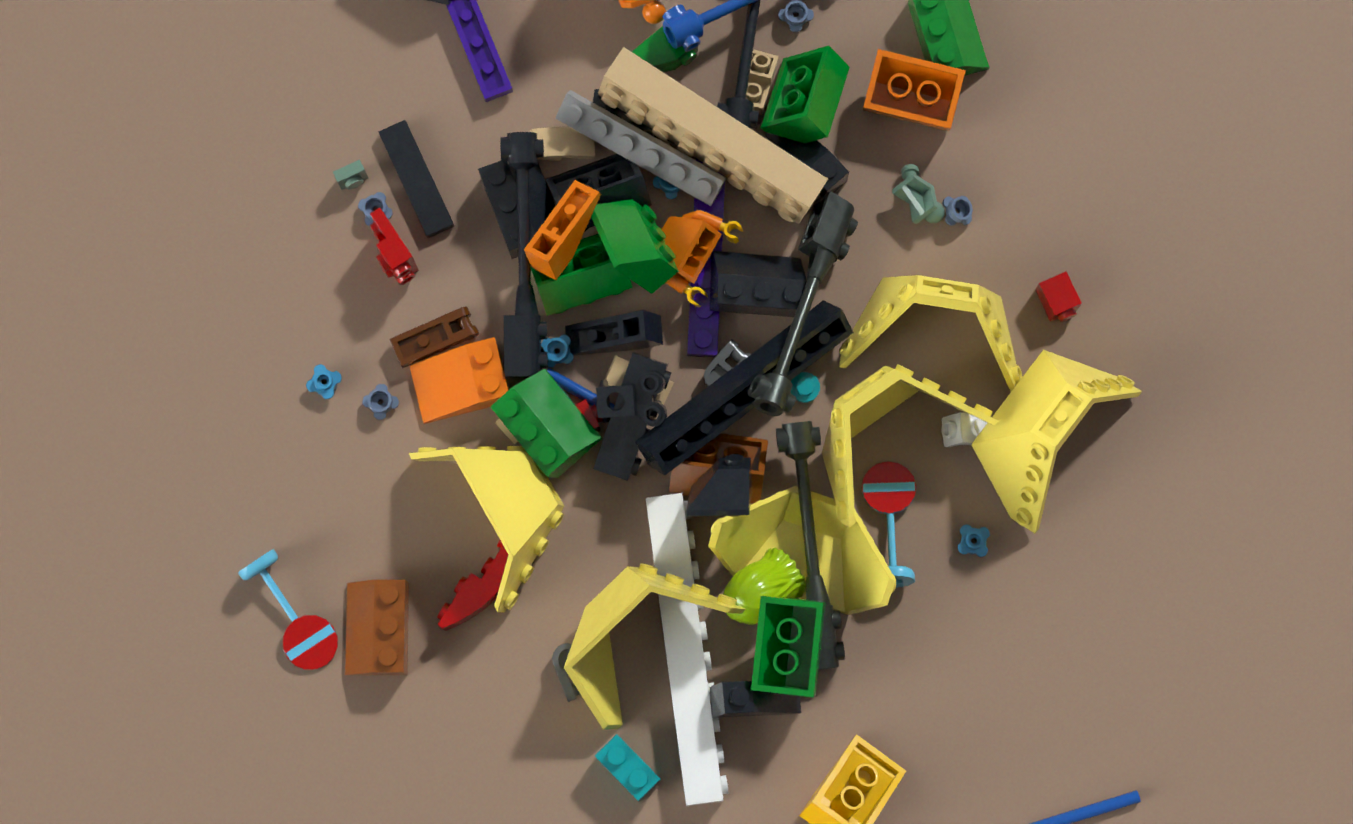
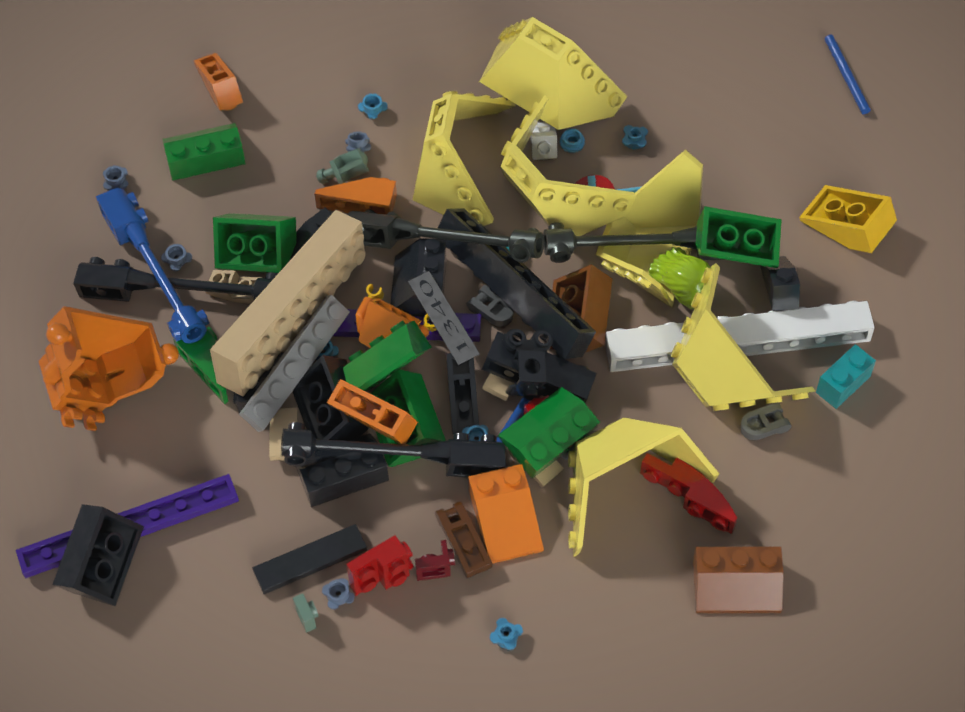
camera: 90 degrees left, 20 degrees down
(308, 640) = (749, 640): piece -> none
(380, 392) = (527, 577): sand blue plate -> none
(401, 302) = (434, 566): none -> dark red bracket
(686, 304) = (443, 318): none -> flat silver sticker
(723, 489) = (608, 285): black slope -> none
(877, 223) = (359, 195): none -> orange slope
(914, 90) = (255, 164): orange slope -> none
(970, 456) = (569, 136): none -> dark azure plate
(1024, 226) = (372, 105): none -> dark azure plate
(1046, 42) = (219, 81): none -> orange slope
(1058, 297) = (433, 76): red brick -> none

